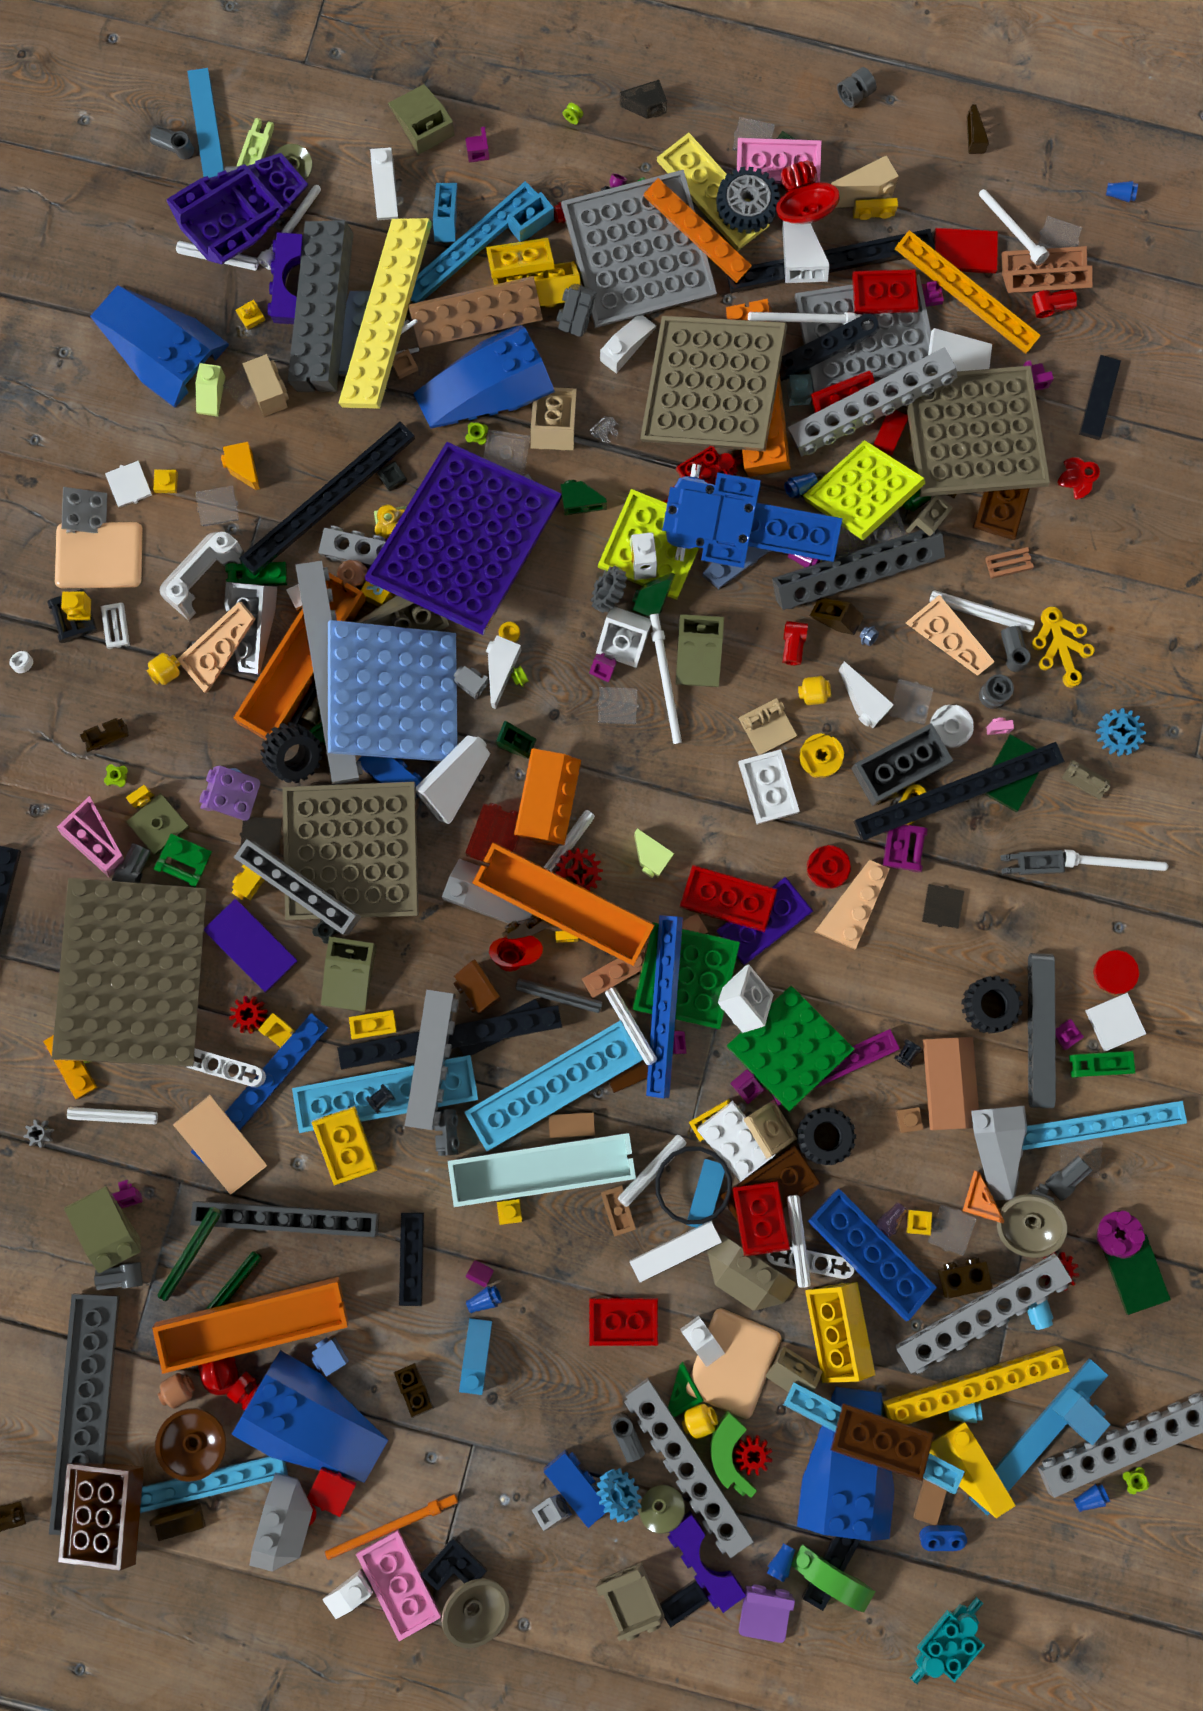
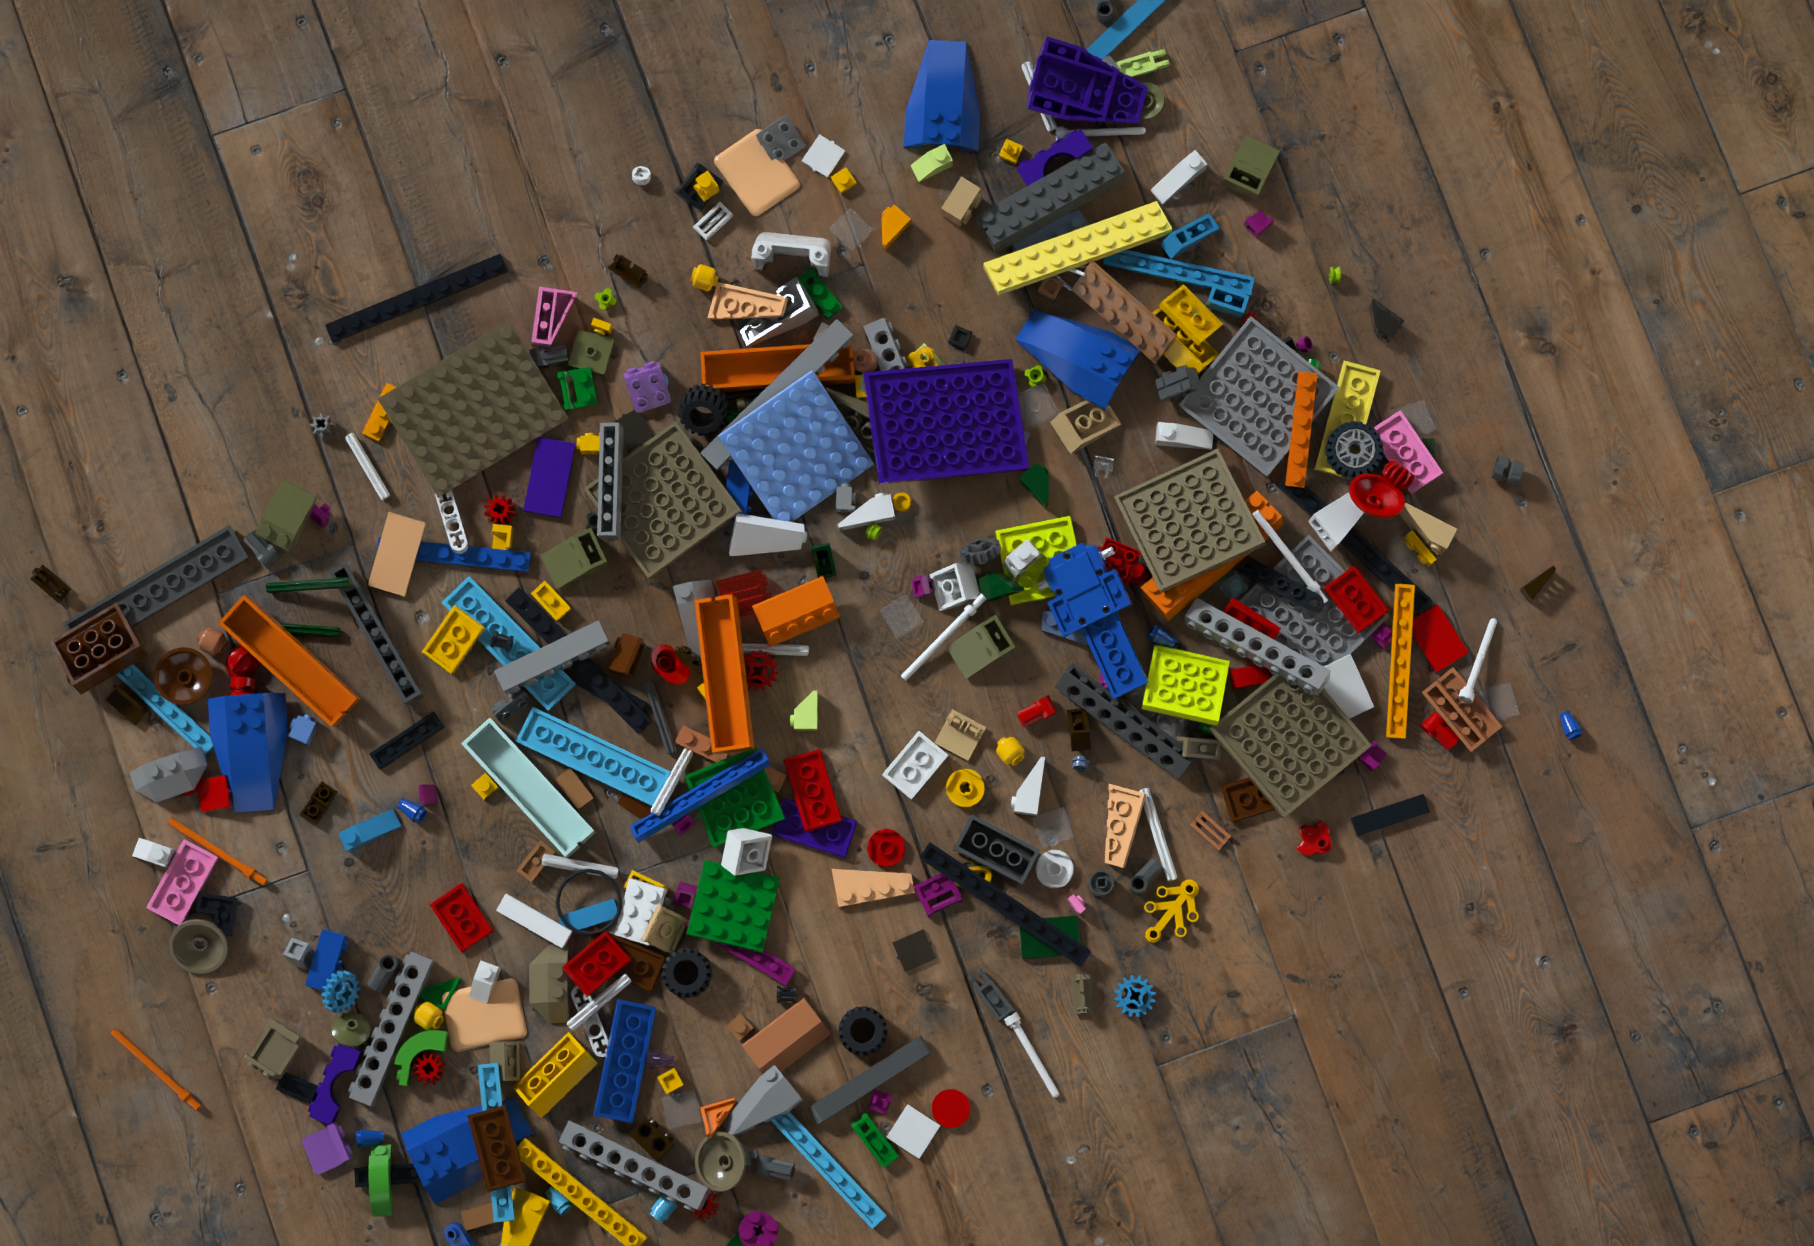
camera: 60 degrees right, 0 degrees up
(327, 498) = (909, 304): black plate -> none

